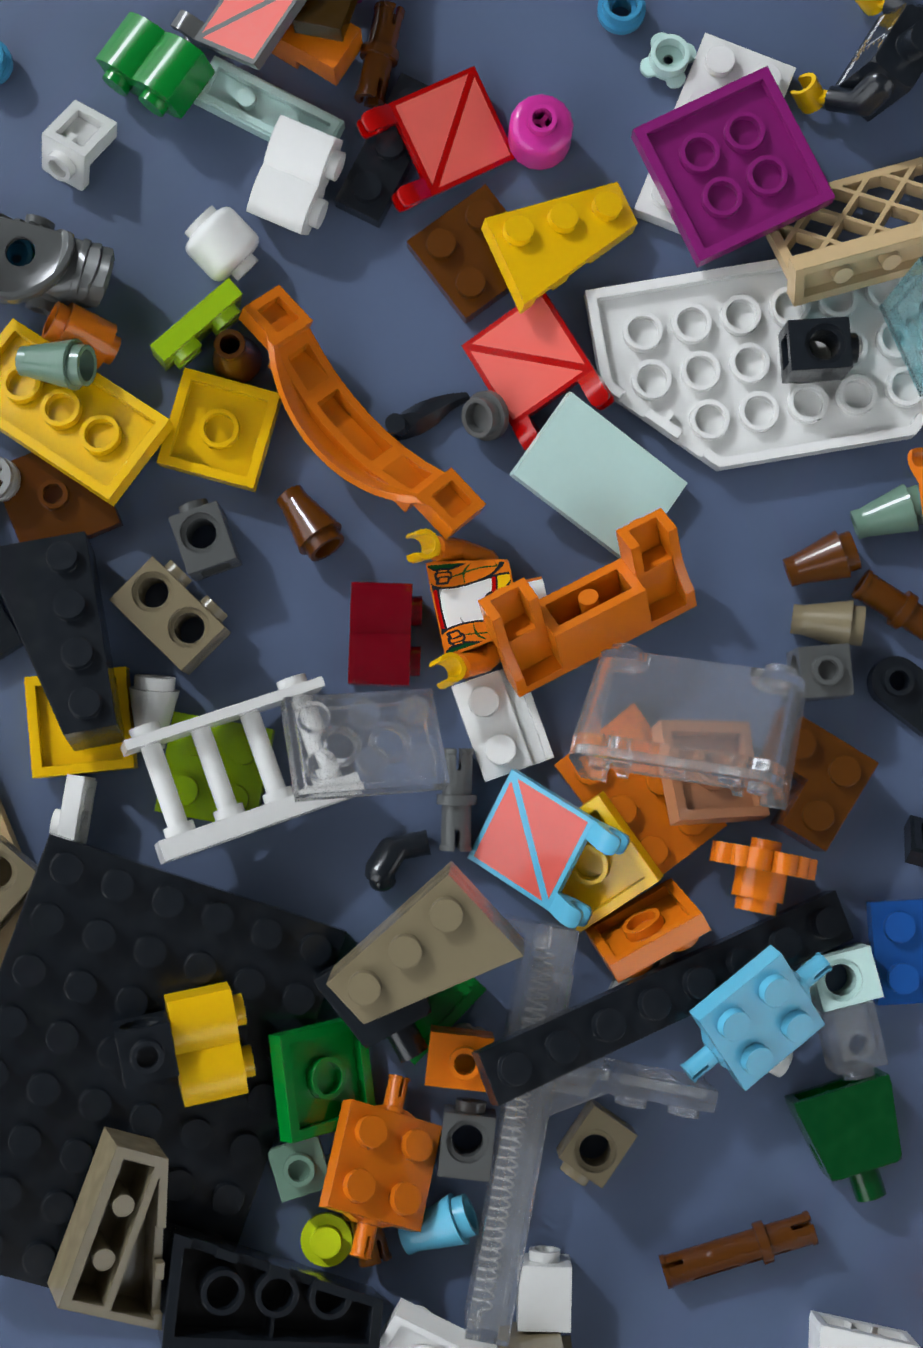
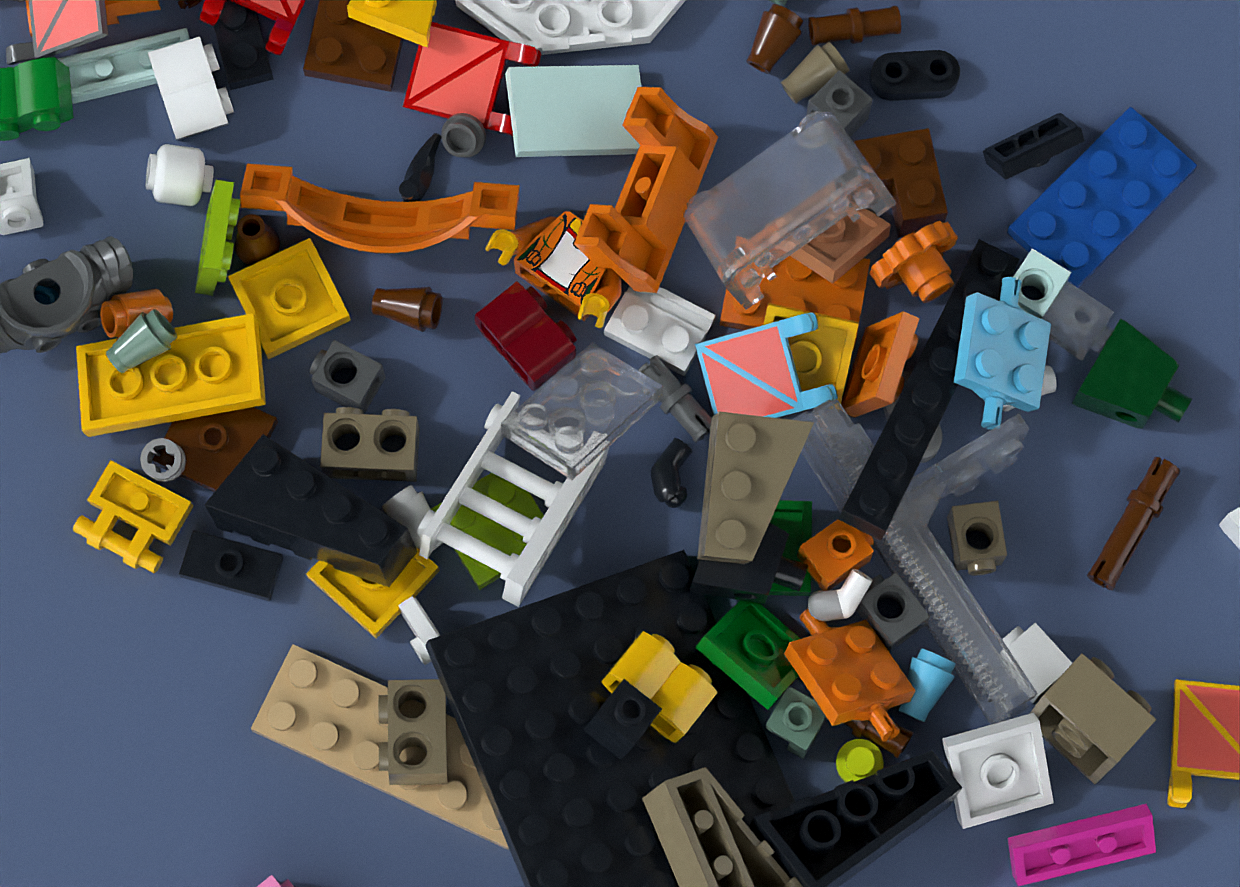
camera: 40 degrees left, 10 degrees down
(424, 1102) = (841, 602): none -> arm

